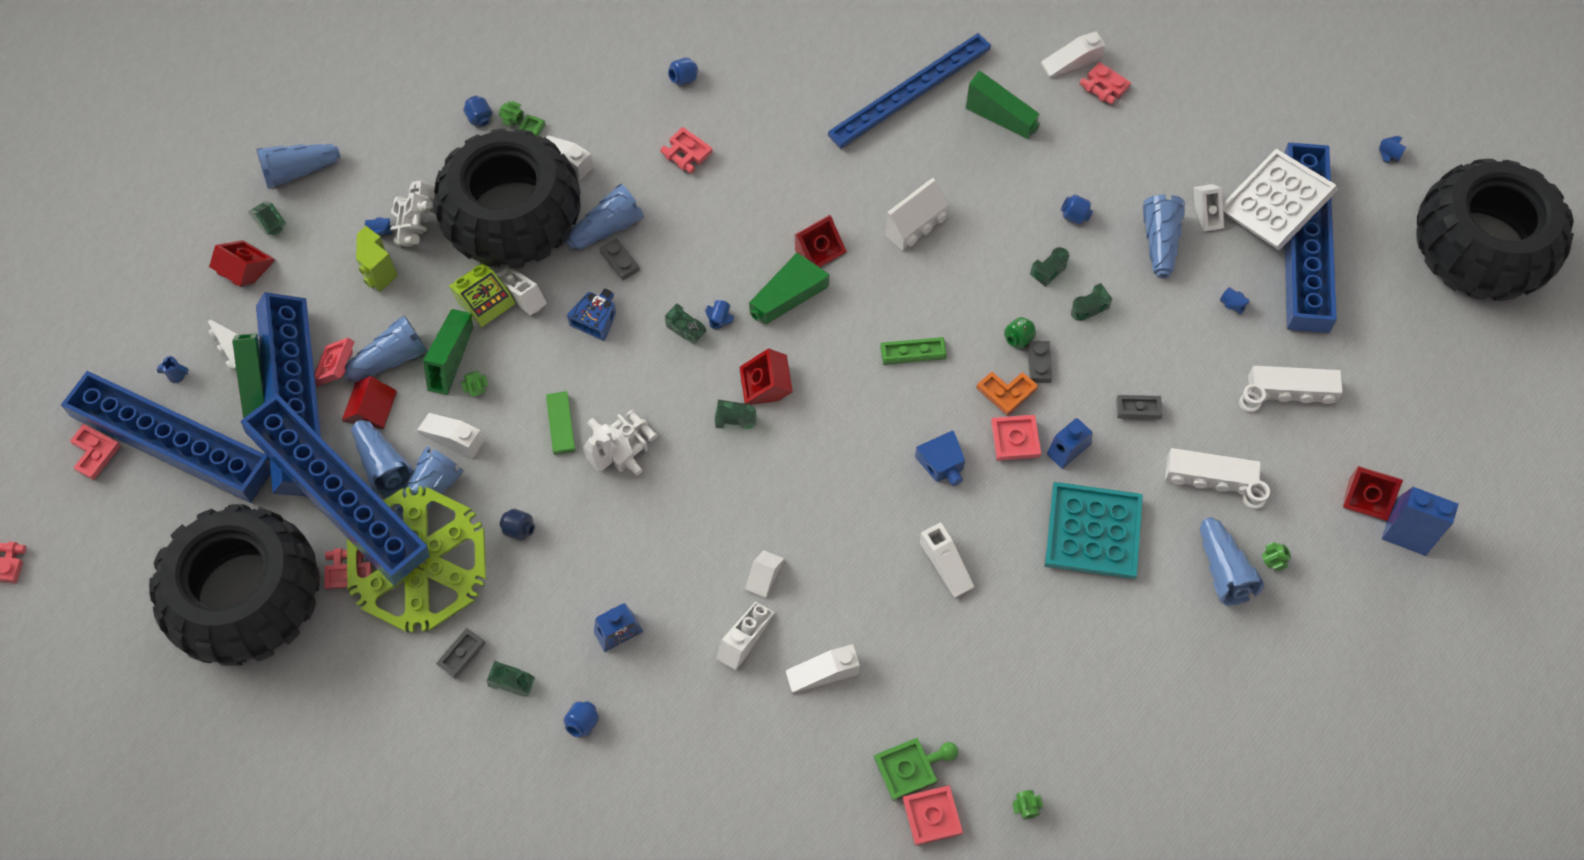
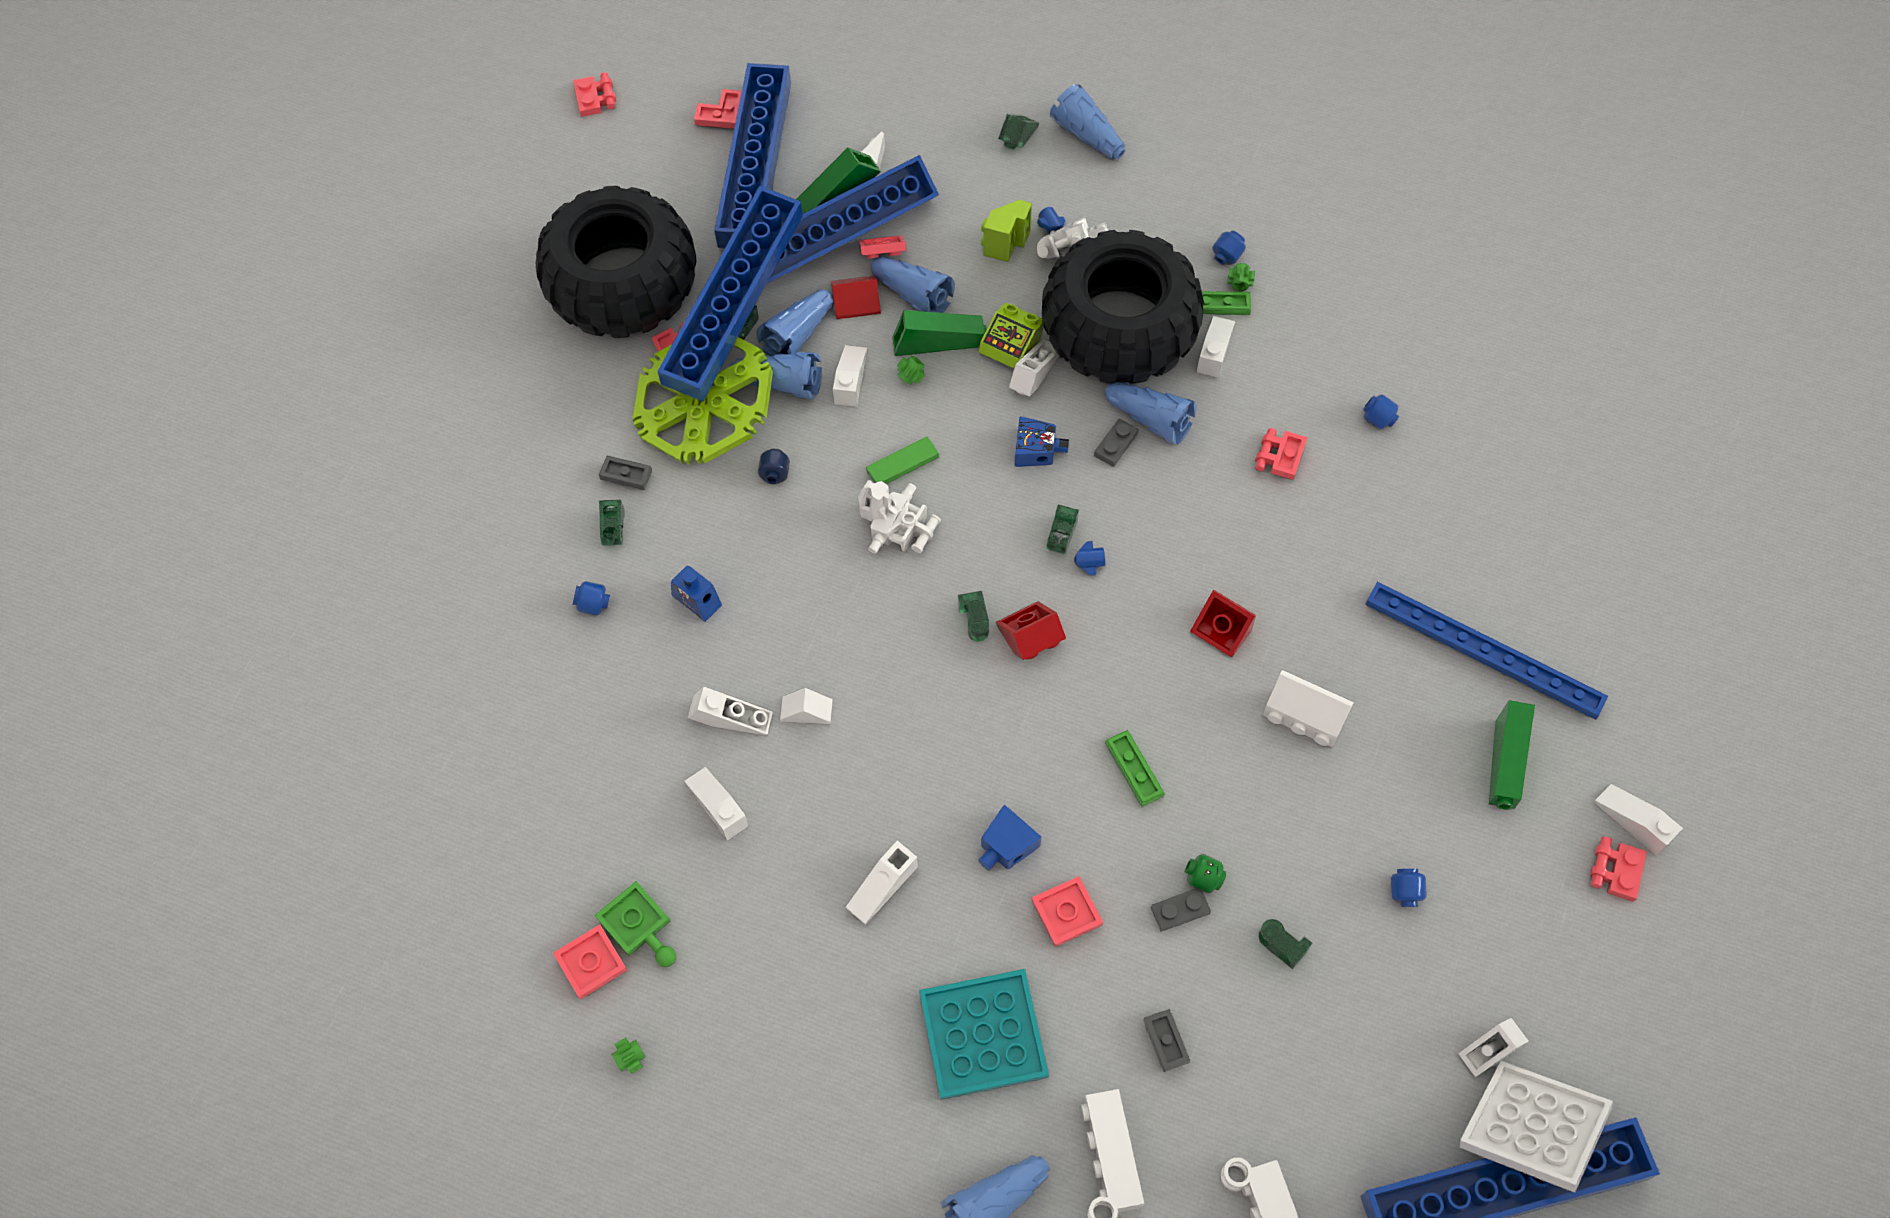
camera: 70 degrees right, 0 degrees up
(172, 369) = (824, 130): blue piece -> none
(240, 262) = (960, 131): red slope -> none
(788, 288) = (1151, 612): green slope -> none
(1006, 396) = (1116, 884): orange plate -> none
(1049, 269) = (1314, 883): clear green leg -> none
(1073, 439) = (1083, 973): blue torso -> none
(1163, 231) = (1423, 997): medium blue cone -> none
(1234, 300) = (1369, 1116): blue piece -> none

